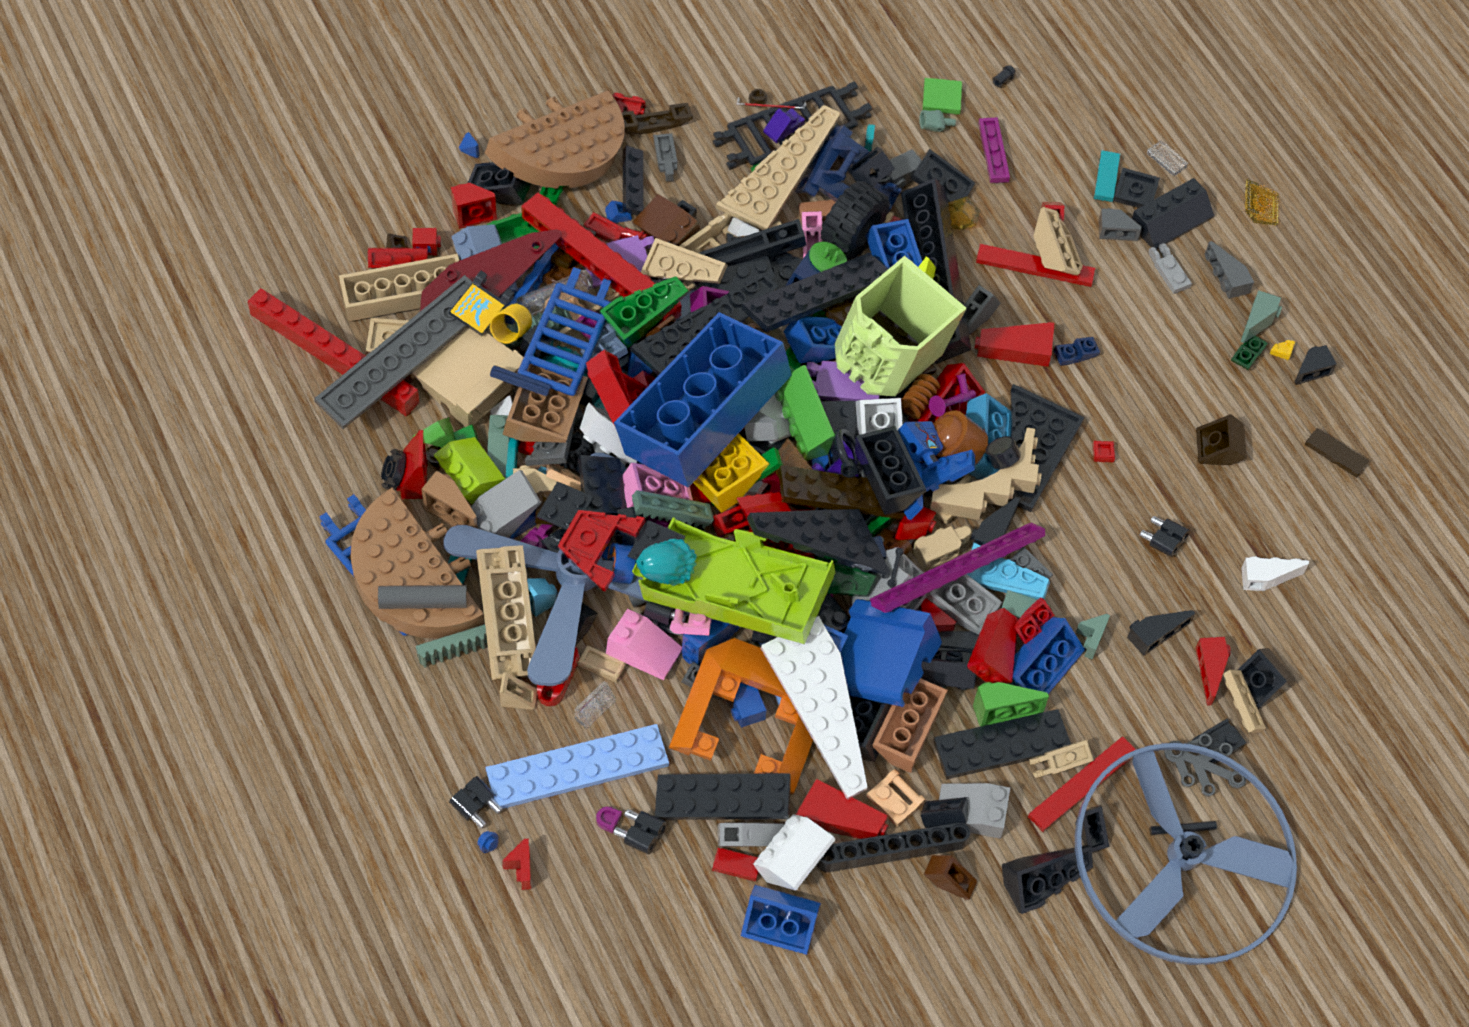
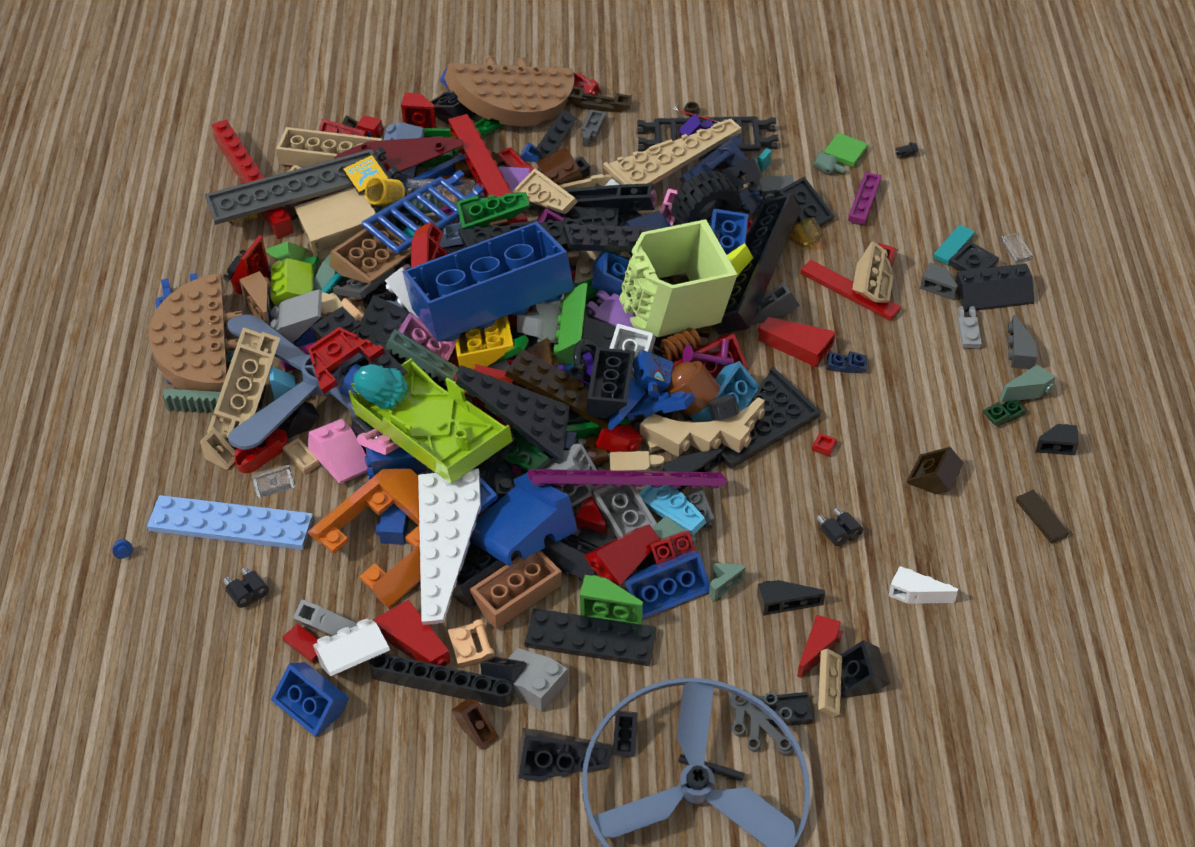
camera: 30 degrees right, 10 degrees down
(422, 596) = (185, 351): dark grey brick -> none
(474, 798) = (133, 513): black piece -> none
(520, 380) = (360, 228): dark blue axle -> none
(520, 860) = (135, 574): red slope -> none
(608, 818) = (228, 568): magenta tile -> none
(723, 796) = (324, 584): black plate -> none
(826, 255) = (663, 218): bright green piece -> none
(892, 583) = (579, 446): black hinge -> none
(1064, 758) = (635, 666): tan hinge -> none
(1077, 787) = (602, 704): red tile -> none
(1261, 203) = (1082, 304): clear yellow slope -> none
(1283, 349) = (1038, 421): yellow tile -> none

